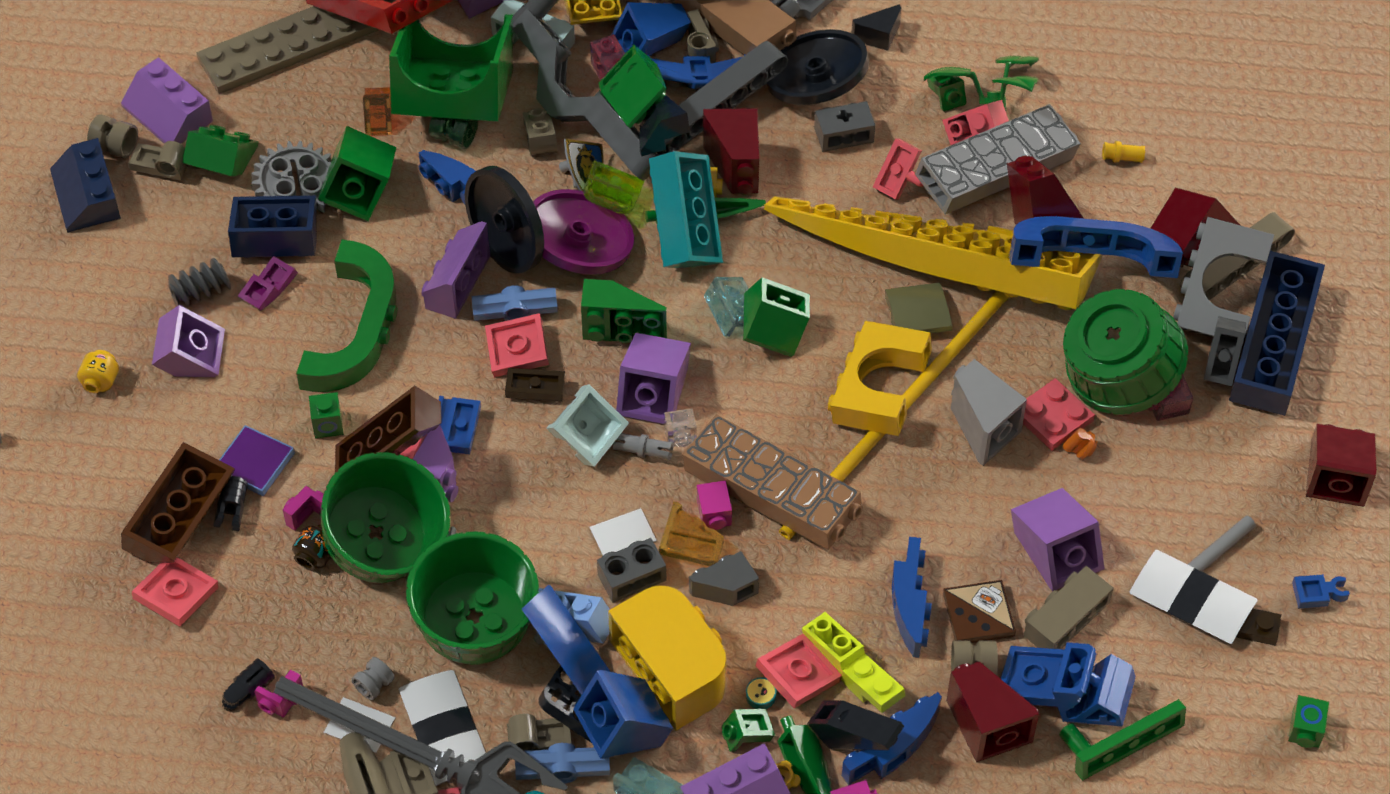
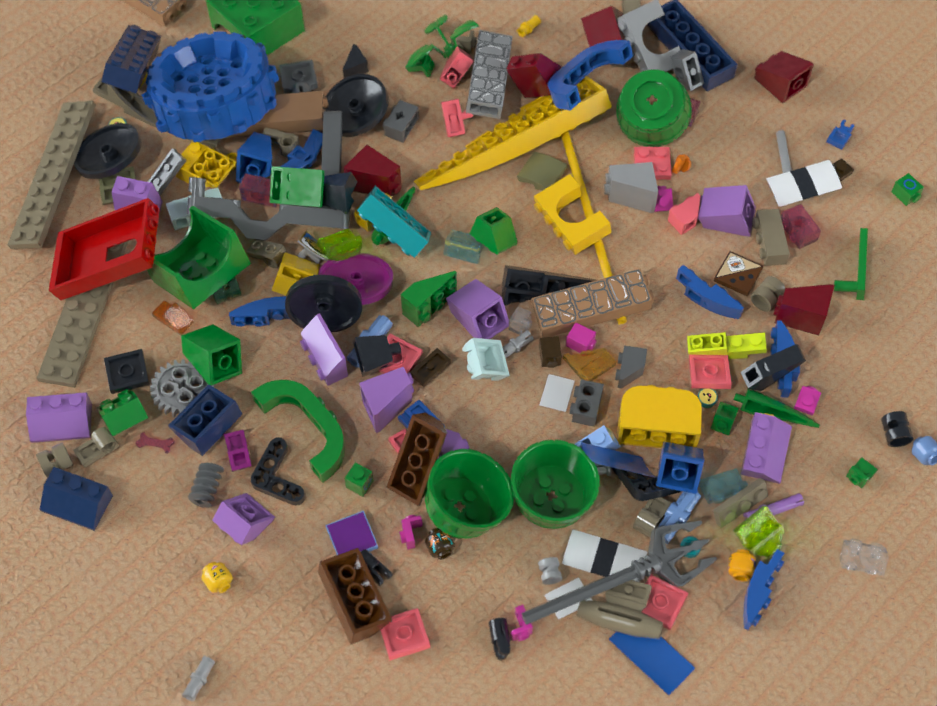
camera: 50 degrees left, 5 degrees up
(207, 197) = (146, 441): none -> clear pink piece
(257, 336) = (271, 480): none -> black beam
(273, 119) = (126, 371): none -> black plate
(449, 364) = (386, 396): none -> medium lavender slope
(492, 314) = (374, 353): none -> black torso
(532, 165) = (291, 270): none -> yellow slope
(666, 485) = (550, 351): none -> dark brown brick
(744, 402) = (524, 284): none -> black wedge
(1005, 458) = (664, 199): none -> dark pink bracket
(1005, 493) = (685, 215): none -> coral slope
(1019, 104) = (466, 43): none -> dark tan bracket
(1072, 682) = (815, 262): blue piece -> none
(1119, 616) = (800, 226): none -> clear pink brick

